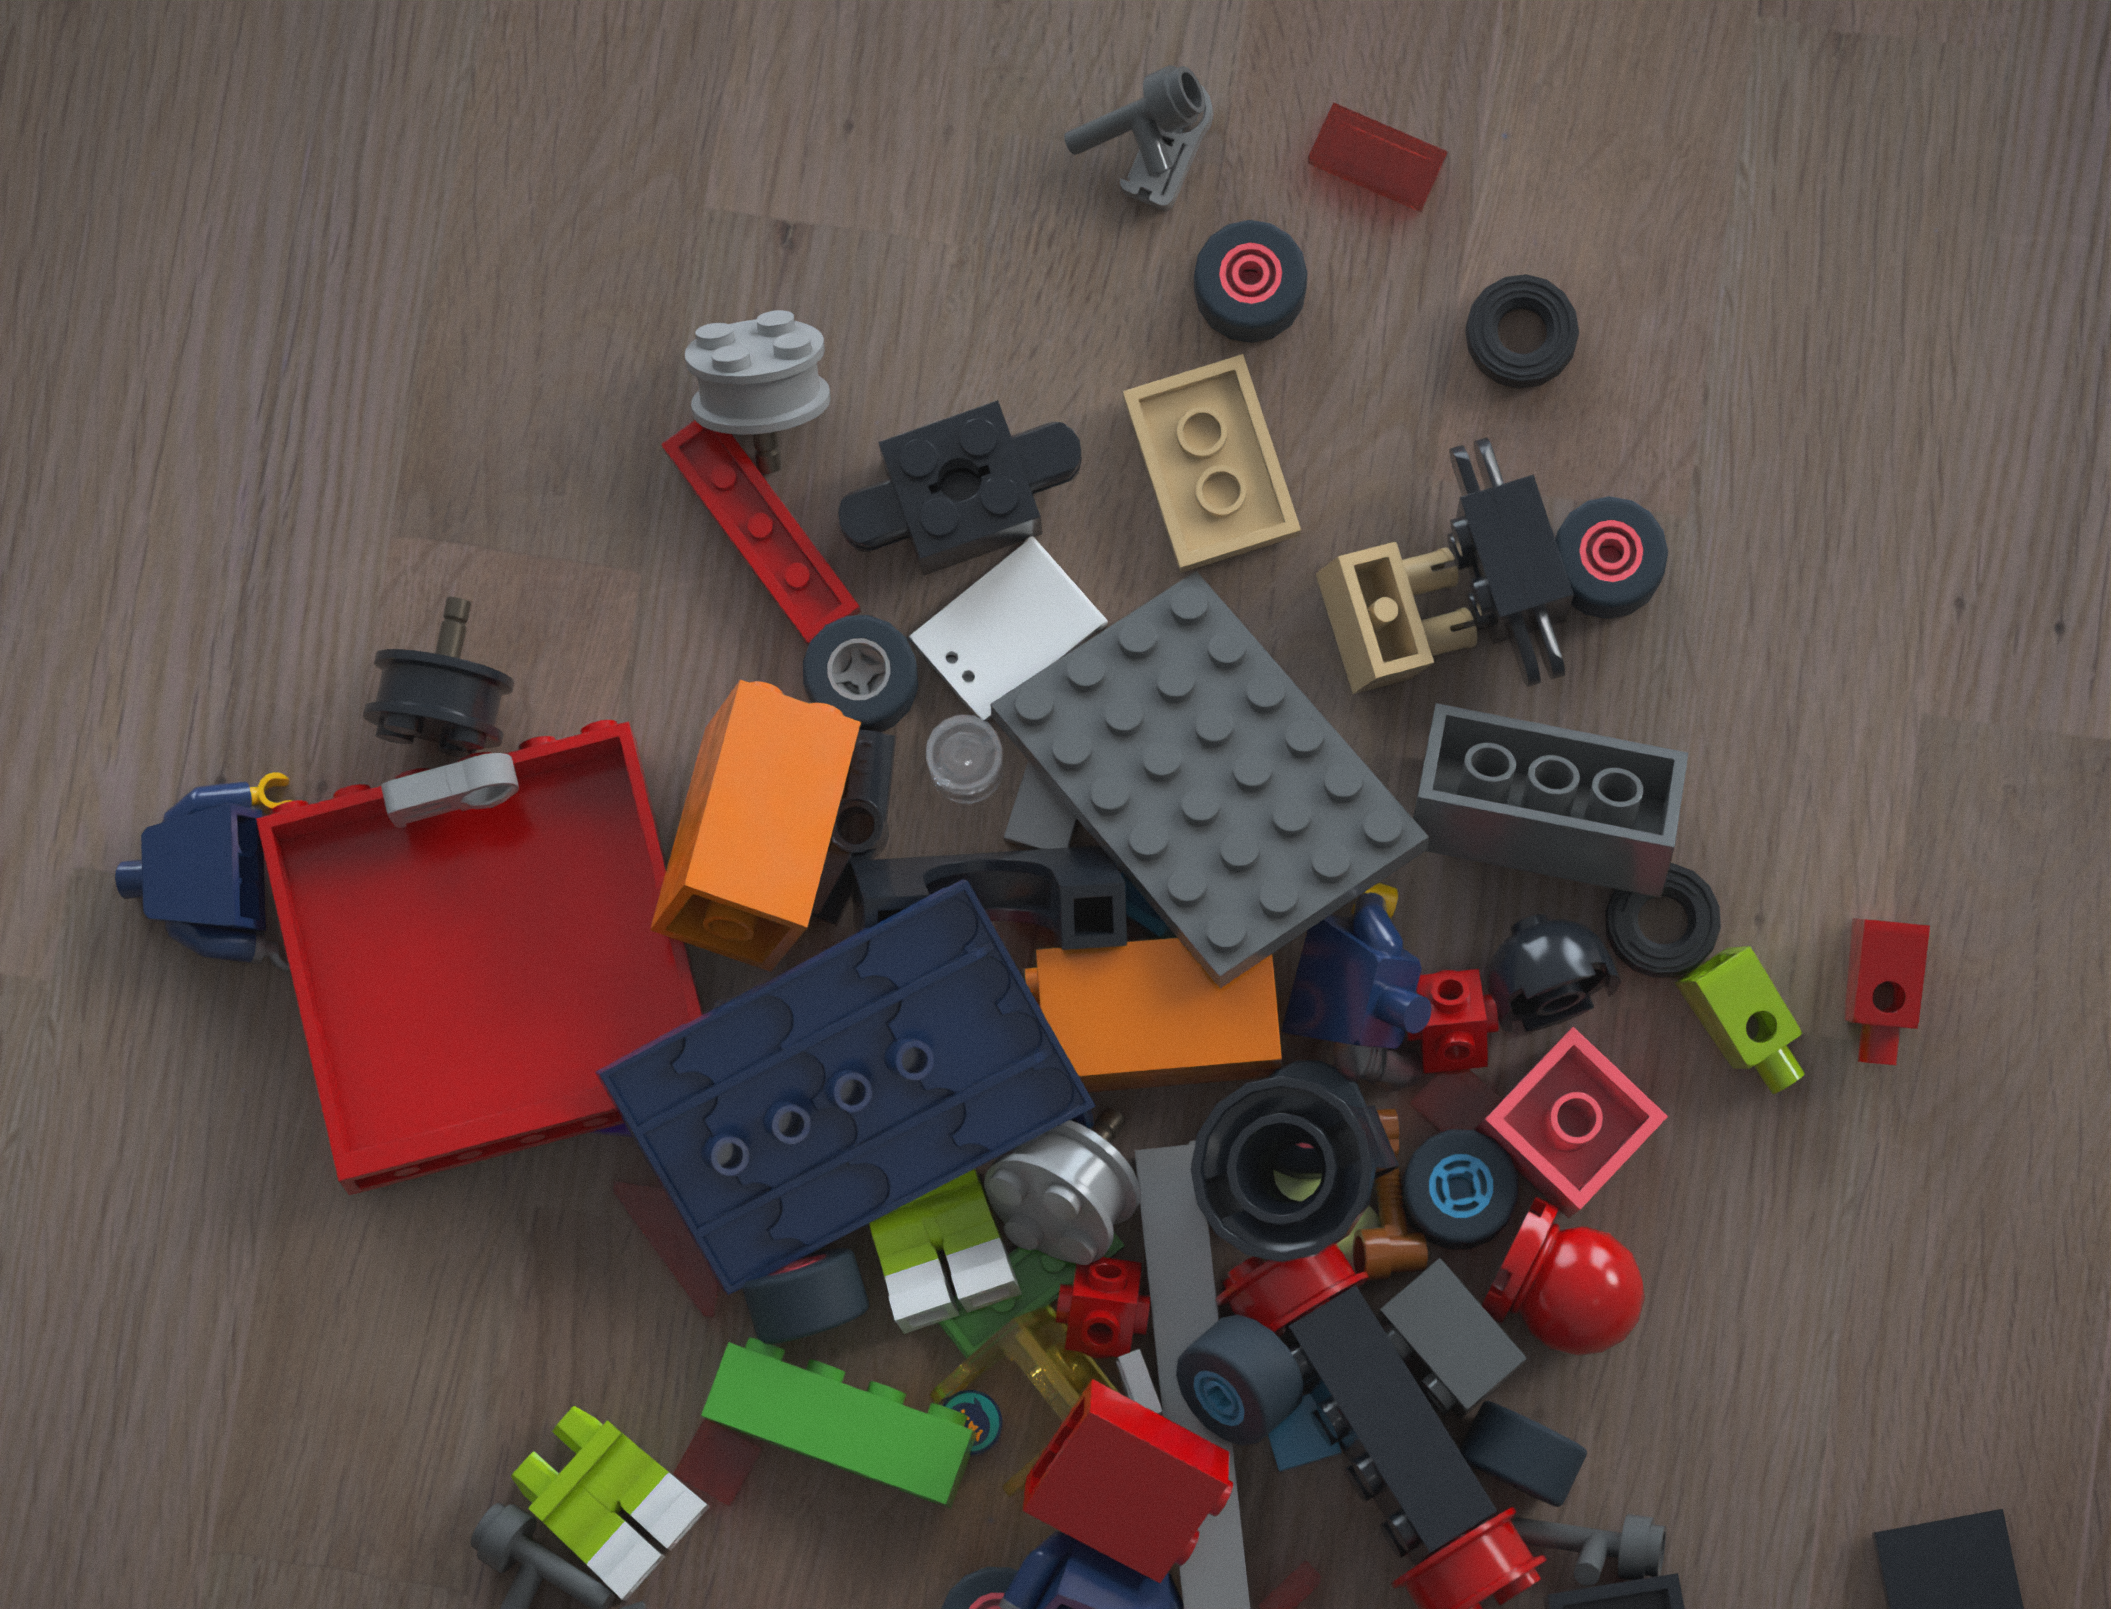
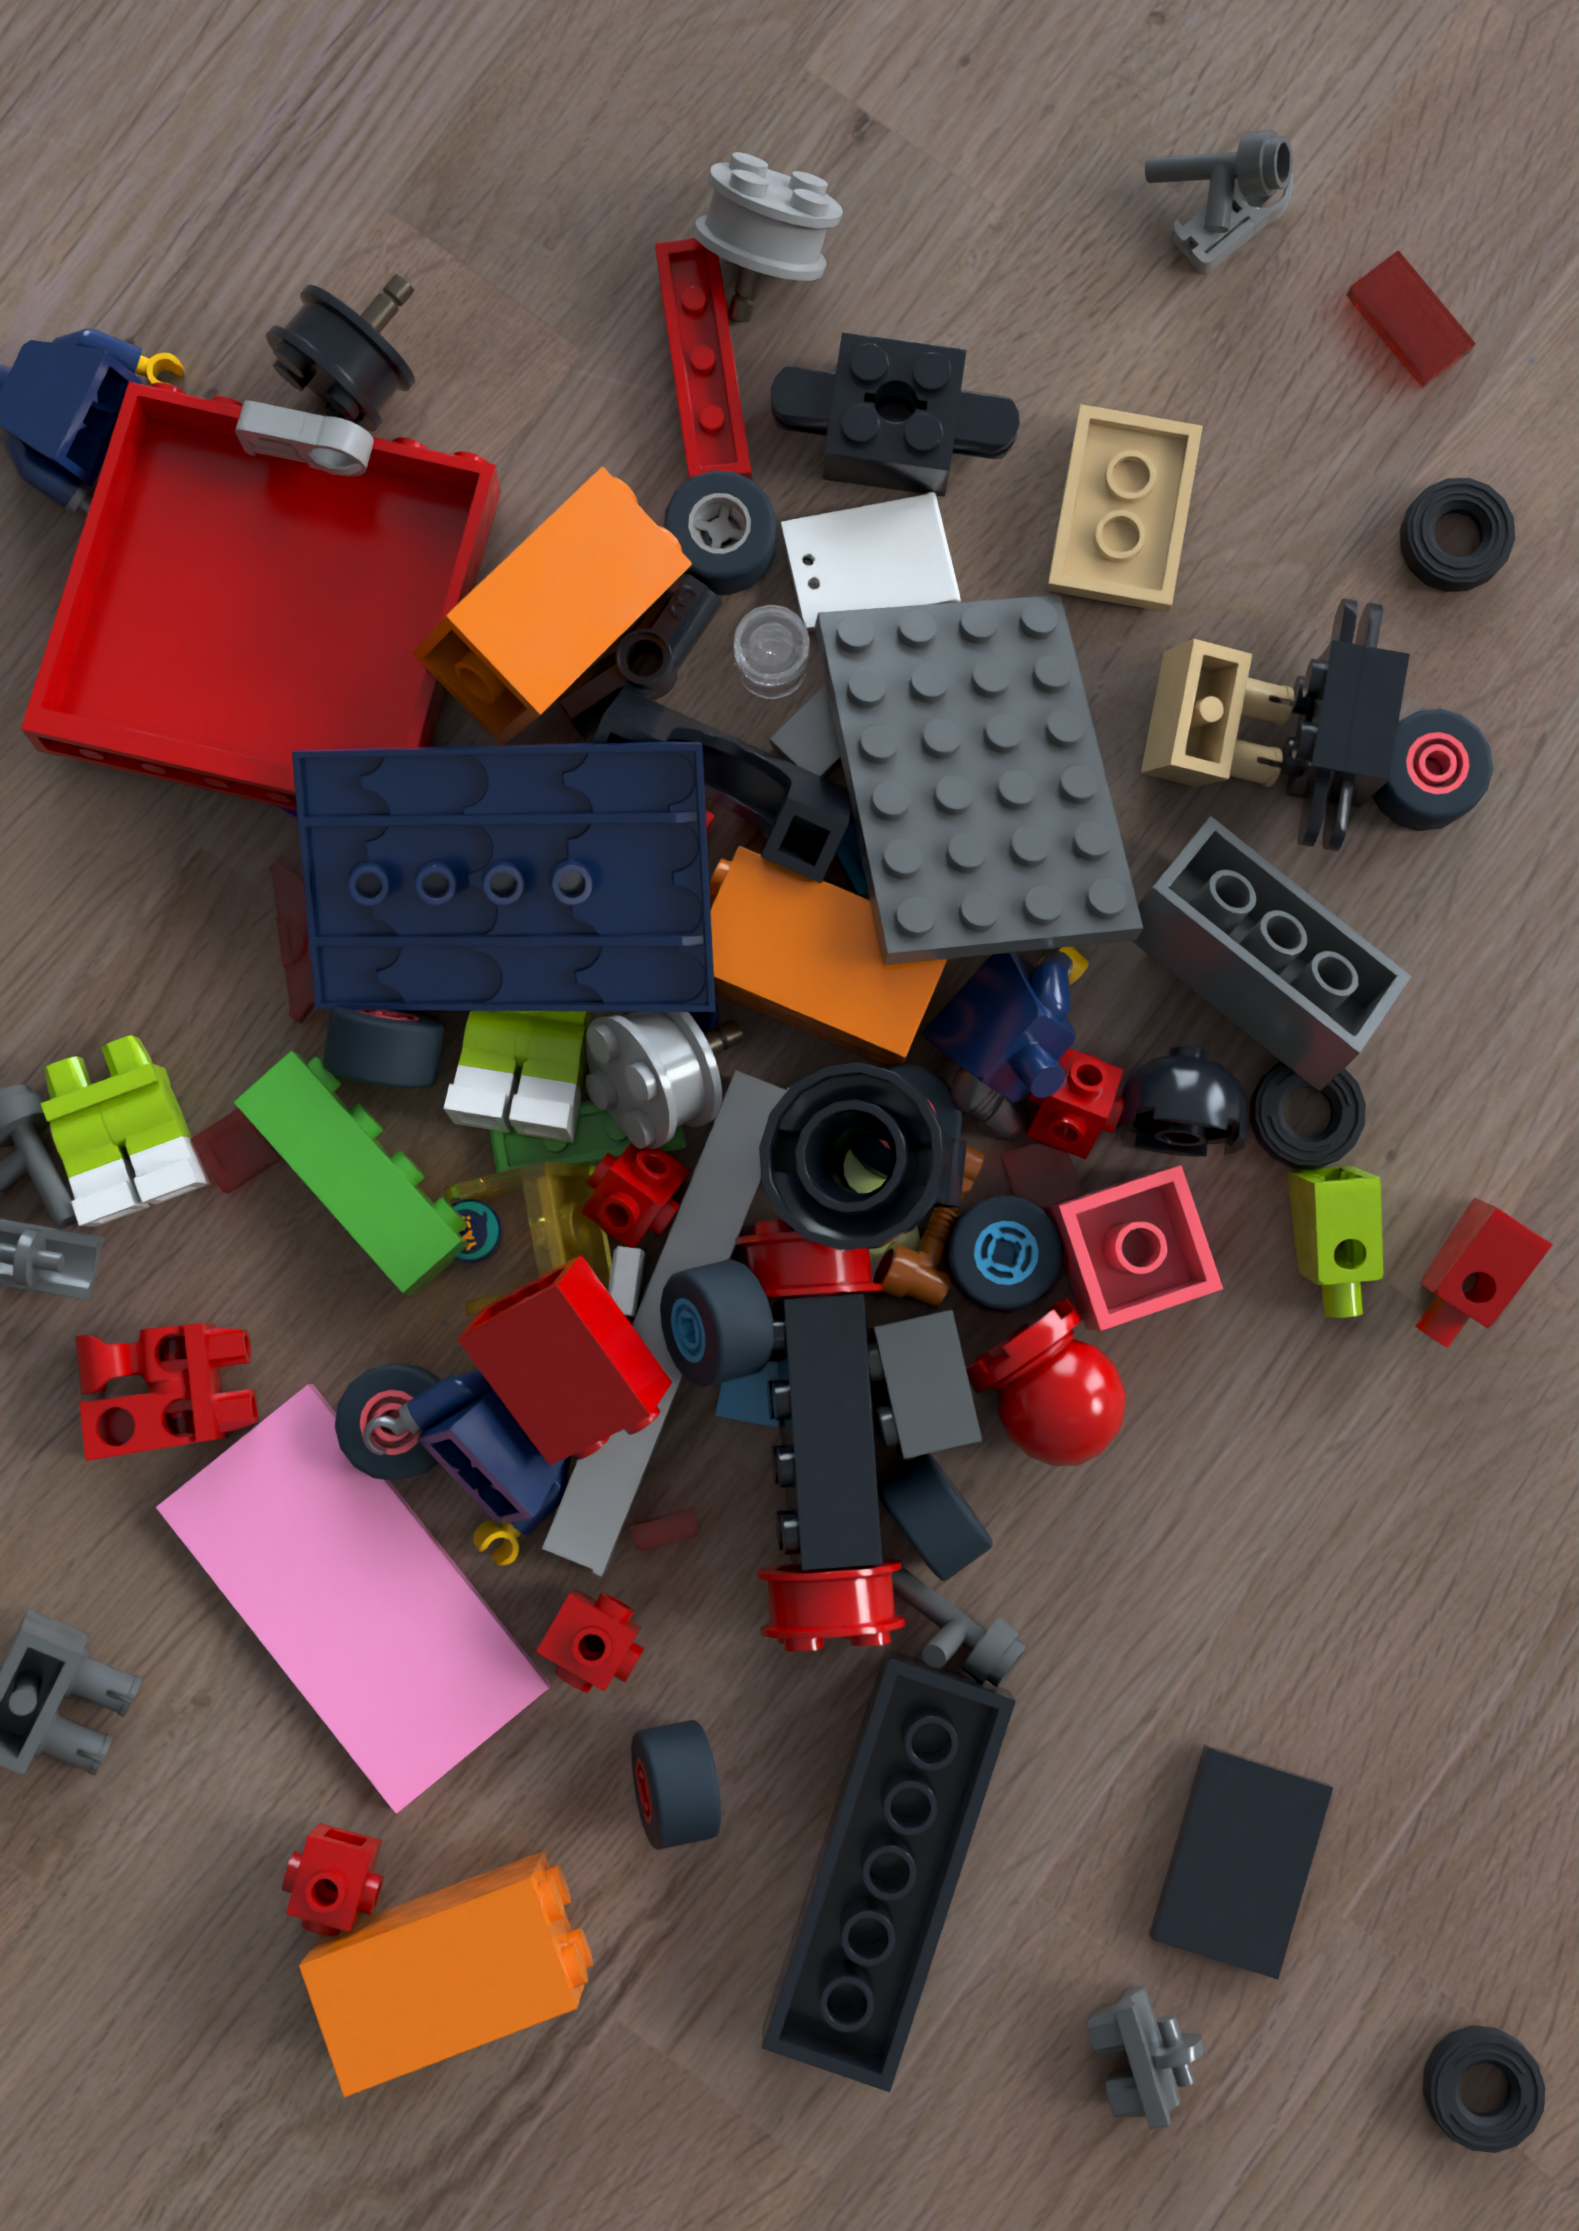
camera: 20 degrees right, 5 degrees up
(1250, 303) = (1232, 388): black wheel -> none

